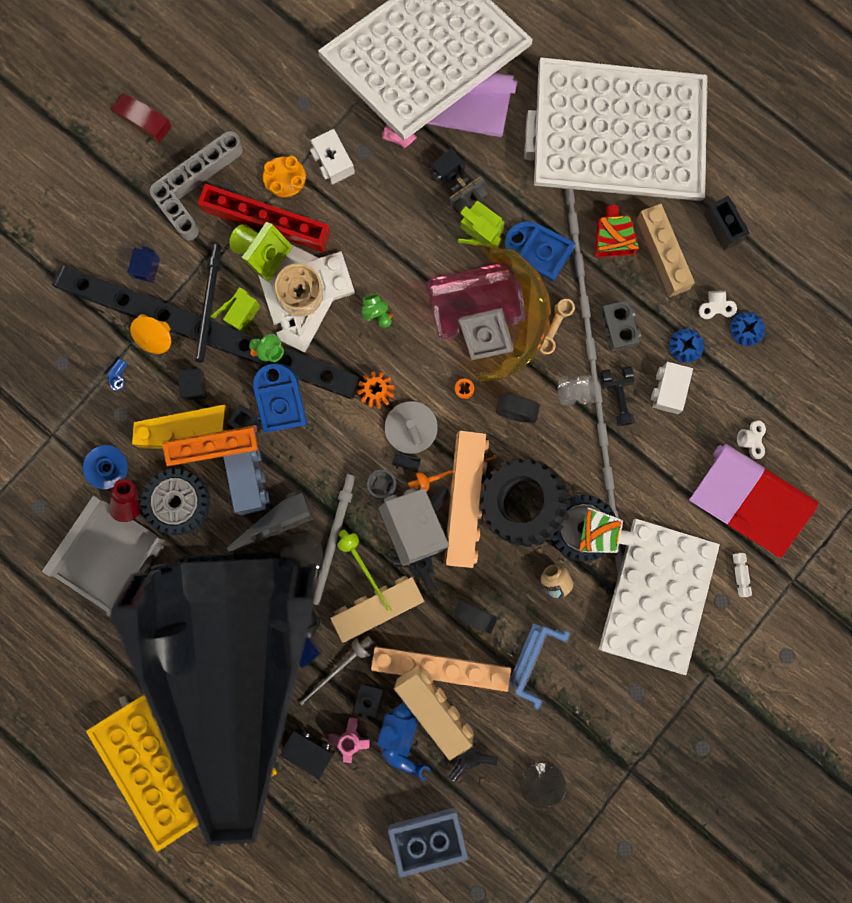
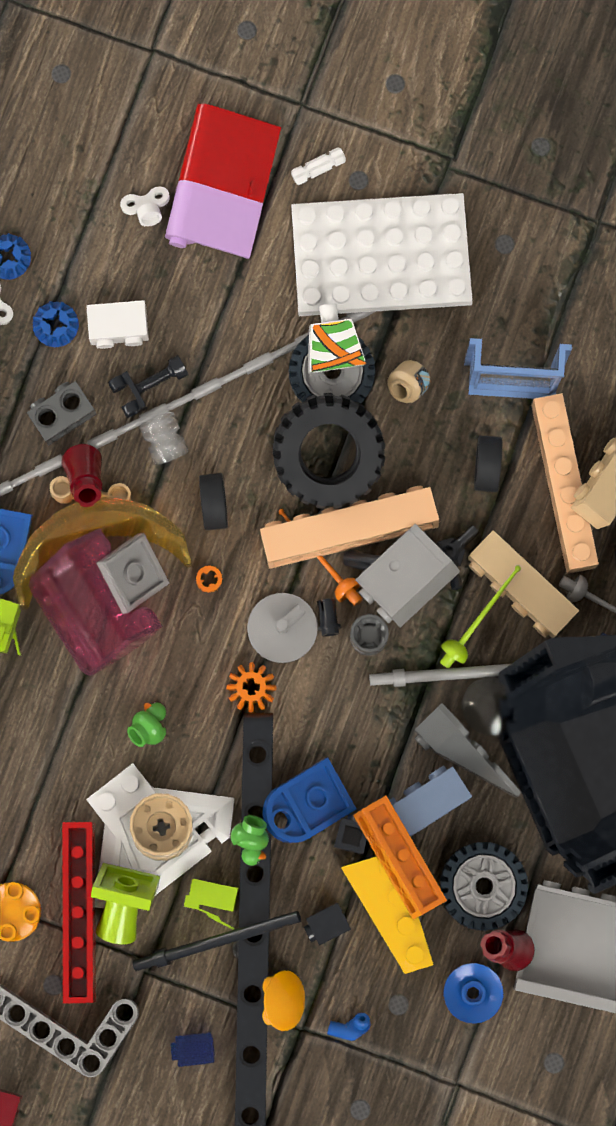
camera: 110 degrees left, 0 degrees up
(572, 325) = (83, 469): none -> dark red plant

